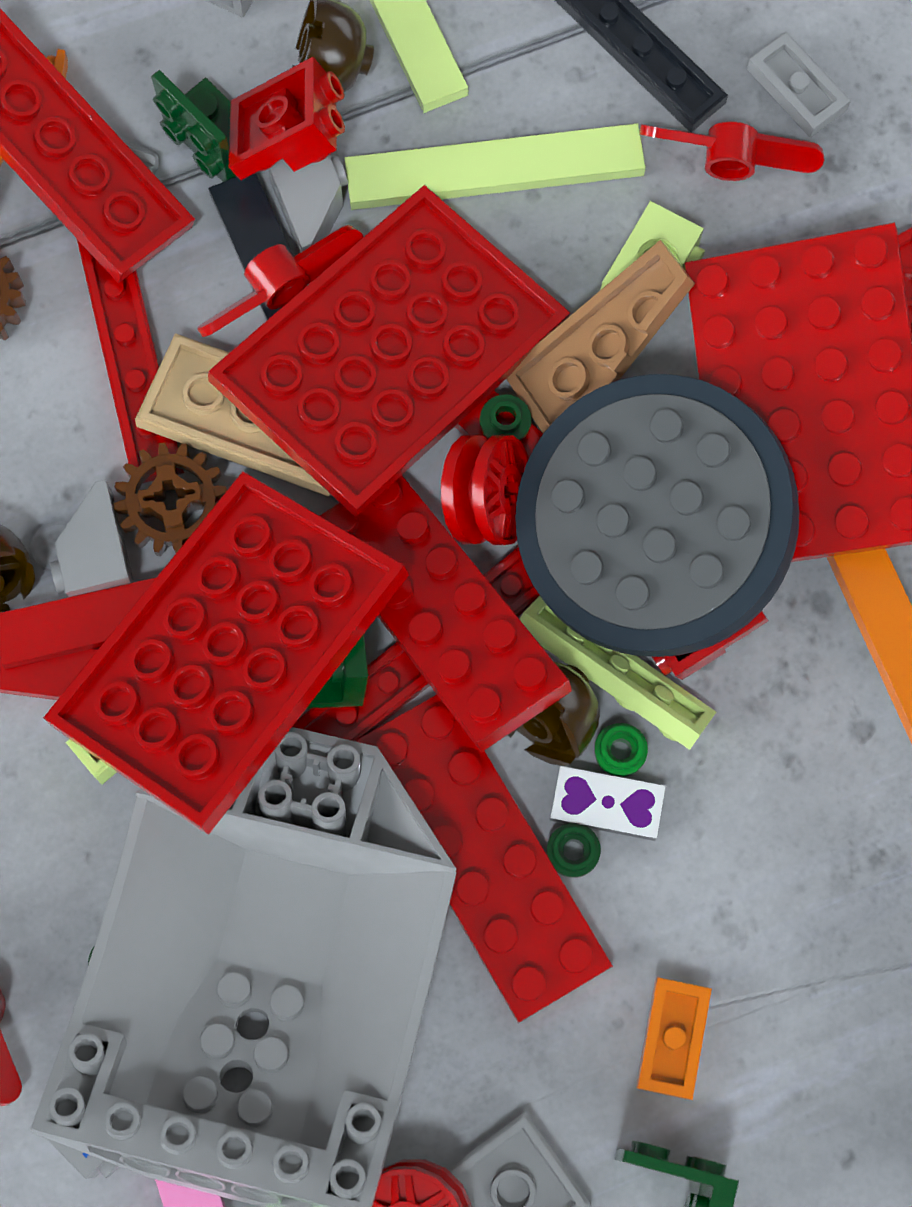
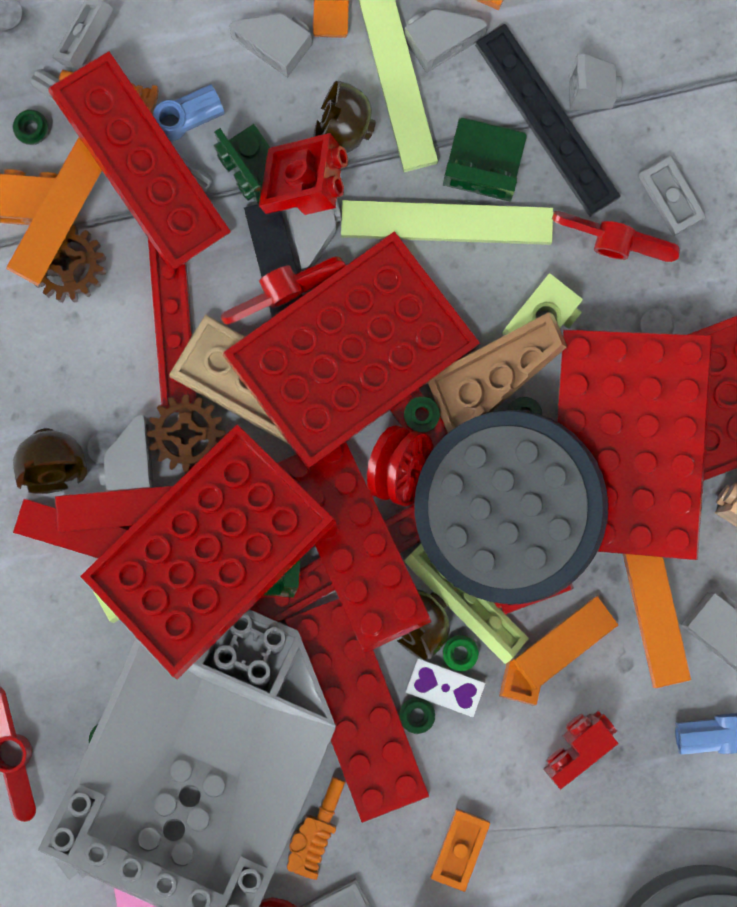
camera: 10 degrees right, 10 degrees up
(113, 73) = (191, 110): none -> medium blue piece
(445, 1066) = (311, 838): none -> orange piece
(532, 77) = (485, 159): none -> dark green bracket
(718, 776) = (516, 686): none -> orange plate
(770, 707) = (565, 642): none -> orange tile
(828, 840) = (589, 741): none -> red plate

